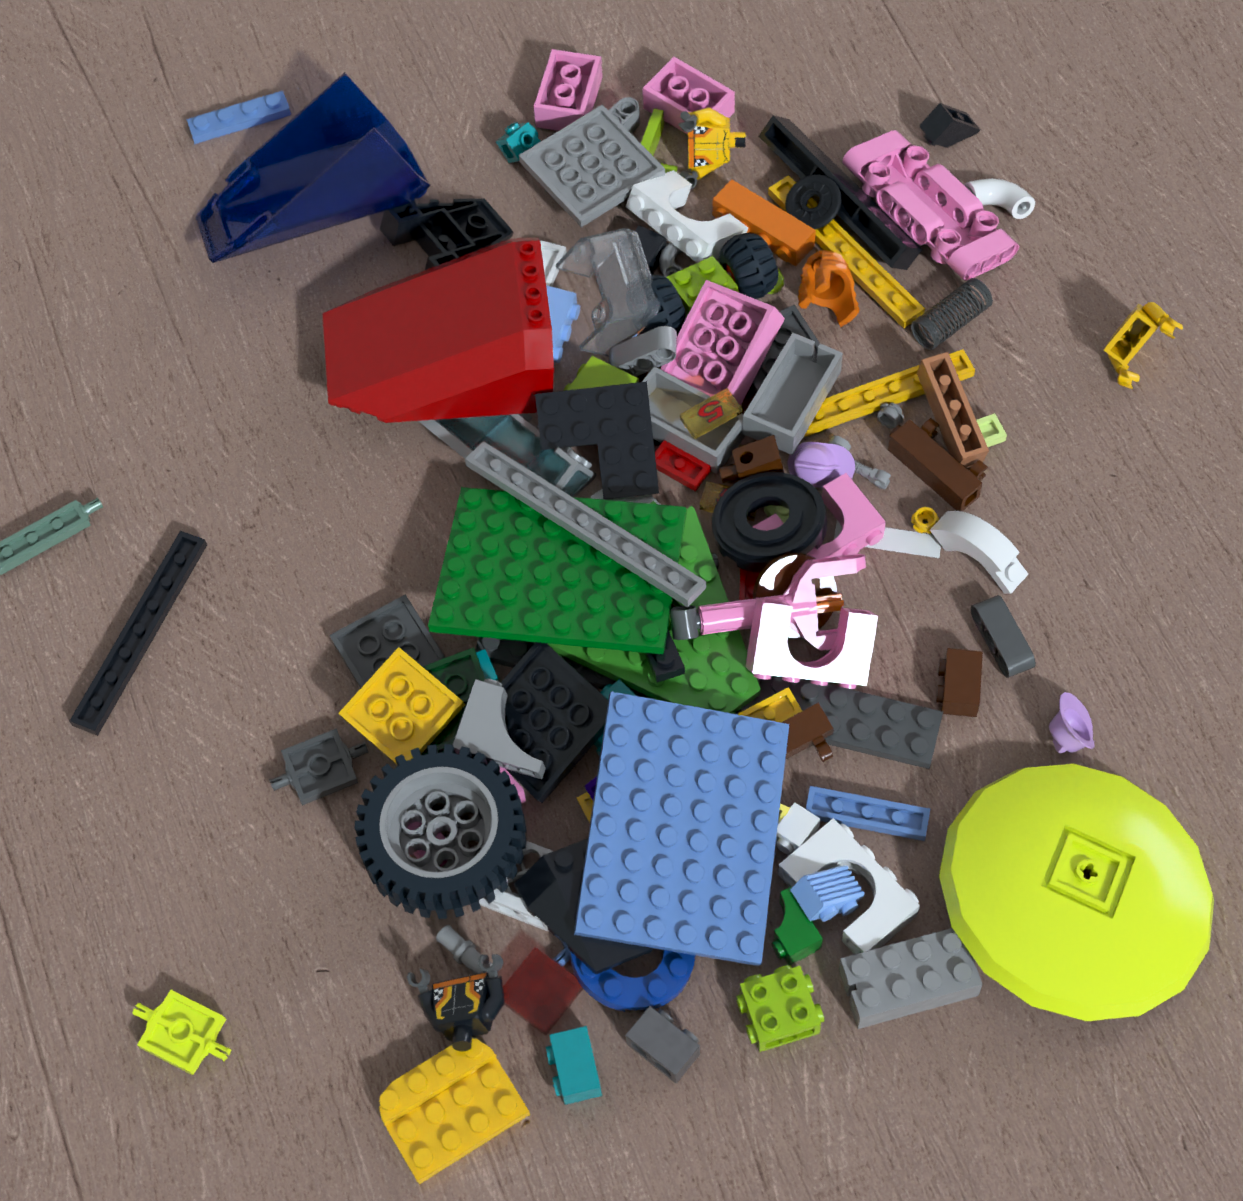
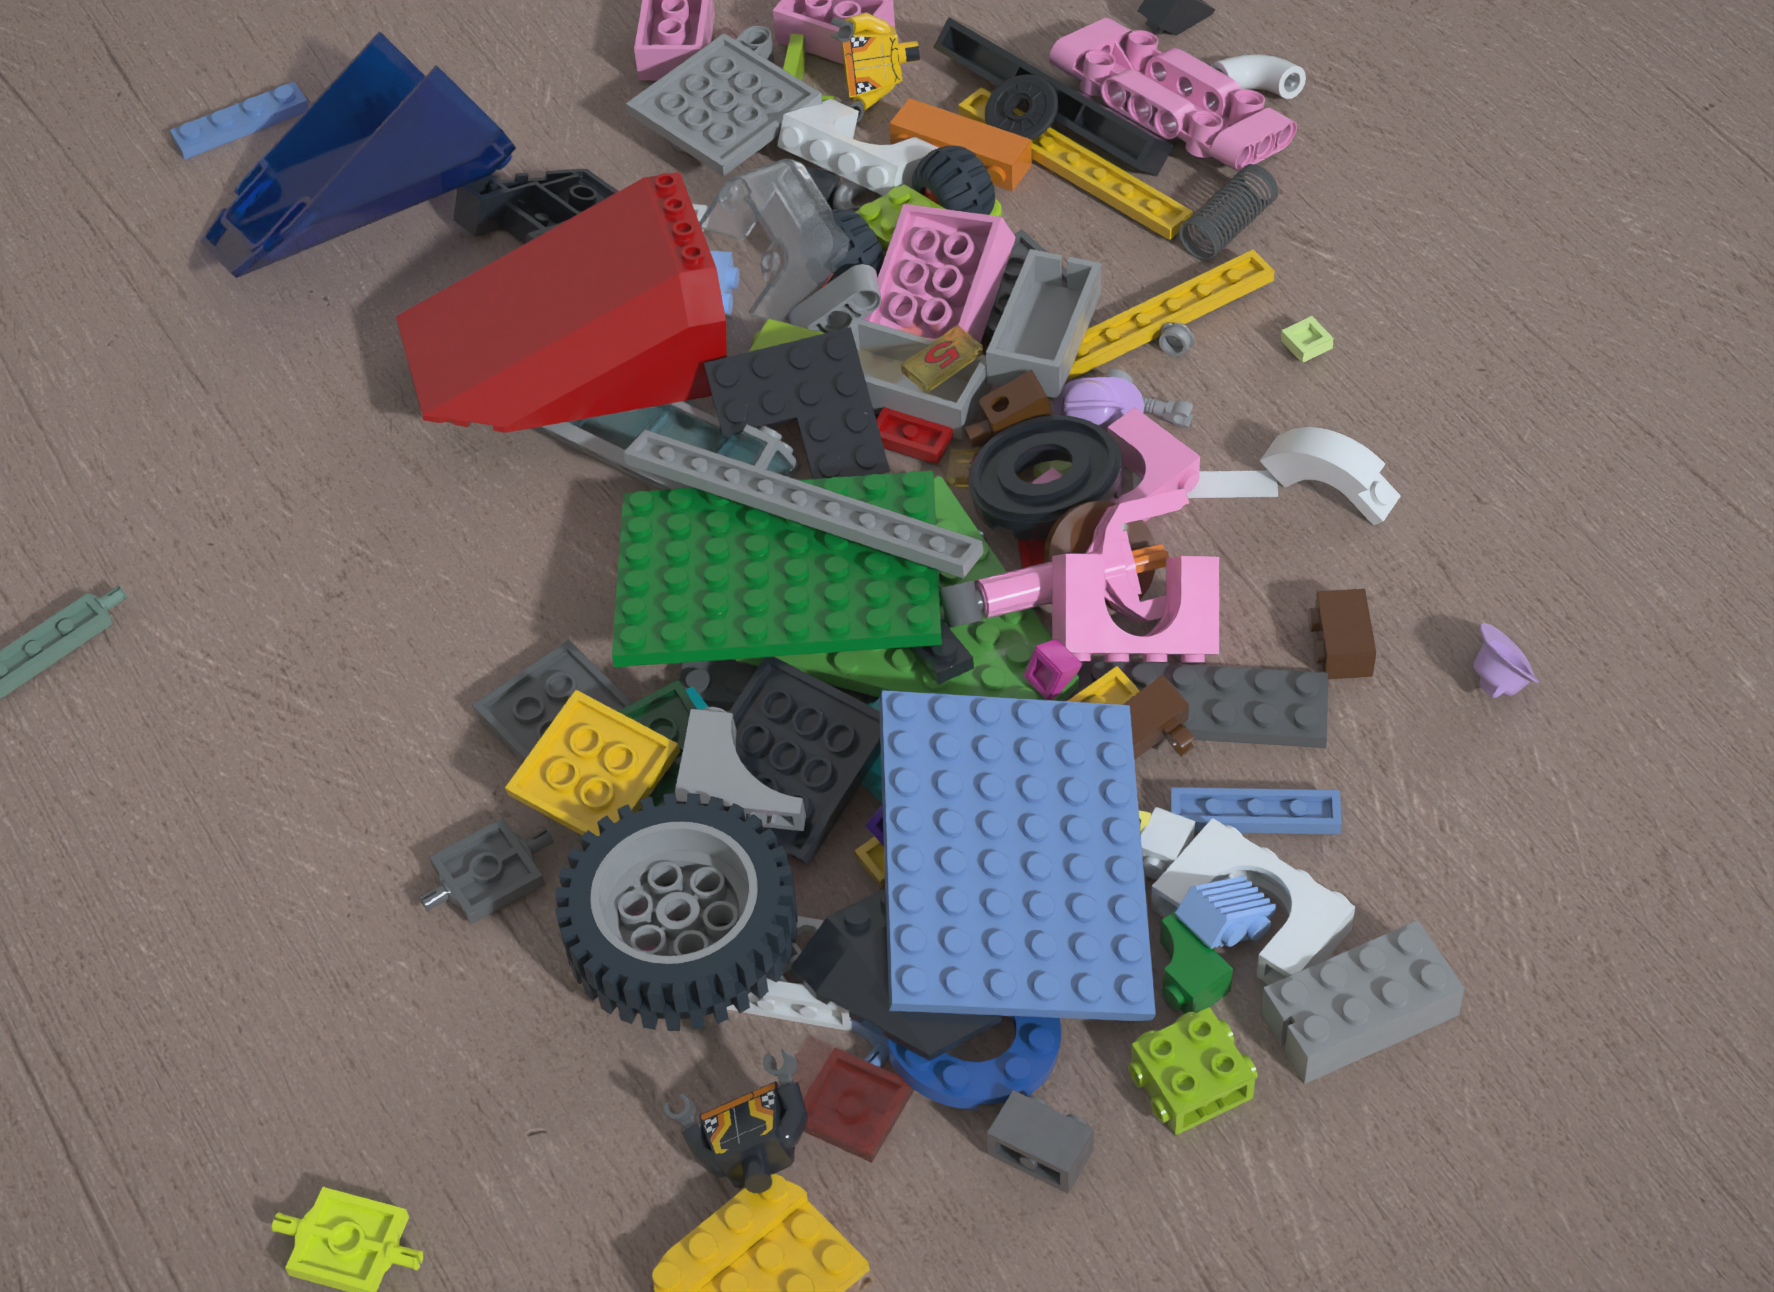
camera: 10 degrees left, 10 degrees down
(138, 633) = (201, 746): black plate -> none
(463, 950) = (733, 1070): light grey pin -> none
(517, 140) = (616, 92): teal brick -> none
(575, 1065) = (922, 1191): teal brick -> none
(740, 683) = (1051, 668): none -> dark pink slope
(830, 285) = (1063, 200): orange hair -> none
(926, 514) = (1248, 452): yellow plate -> none
(935, 465) = (1247, 386): reddish brown brick -> none
(952, 409) = (1257, 317): nougat brick -> none
(1003, 636) = (1385, 572): dark grey beam -> none
(1068, 940) = (1566, 916): neon yellow container -> none
(1133, 335) = (1469, 199): yellow torso -> none

